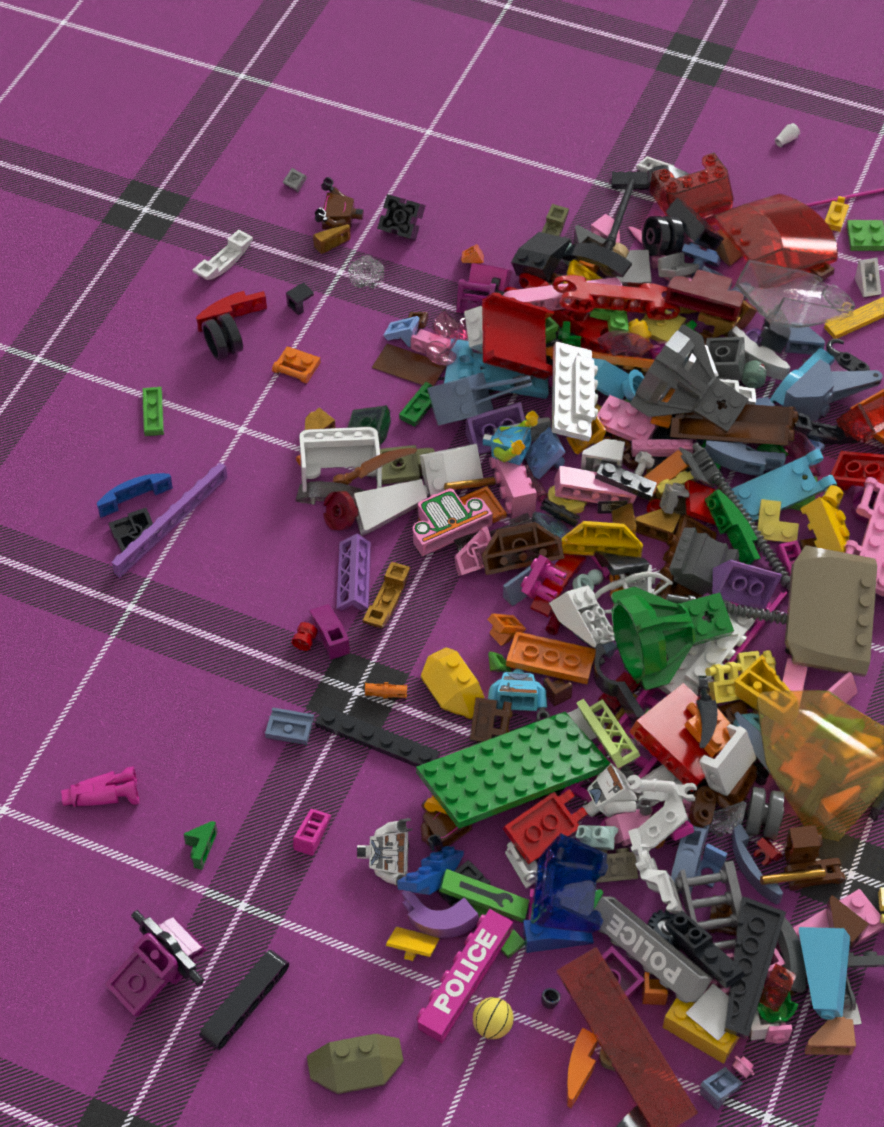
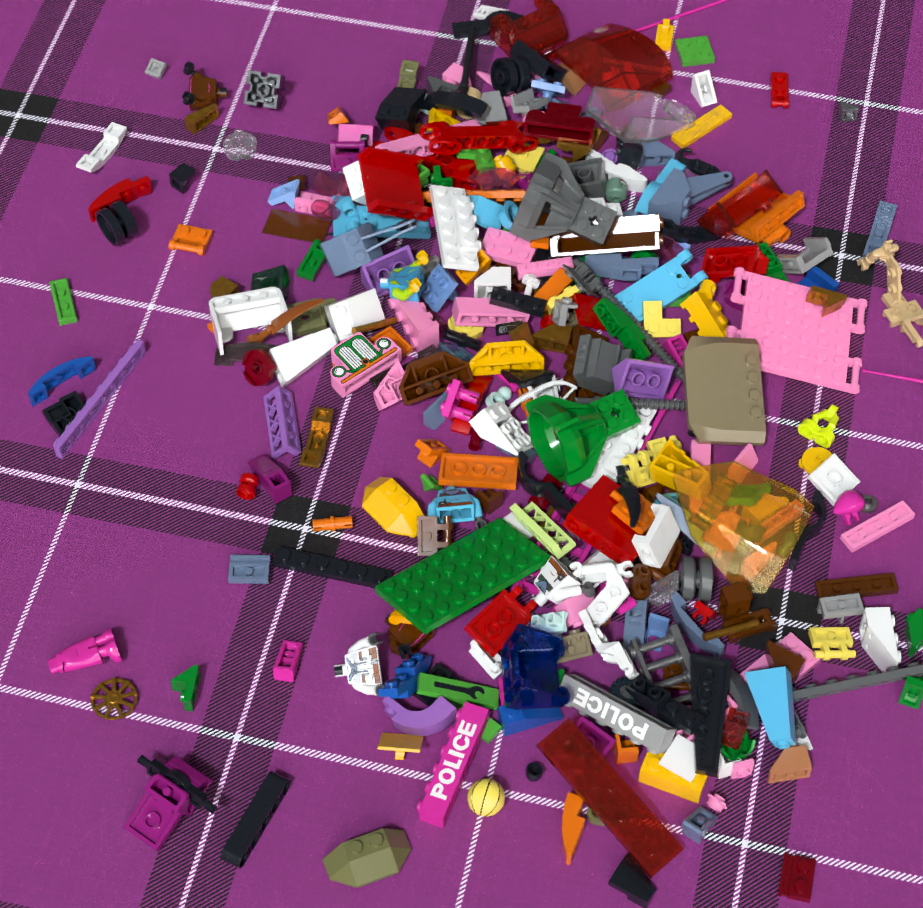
camera: 10 degrees left, 0 degrees up
(122, 843) = (114, 698): none -> pearl gold wheel

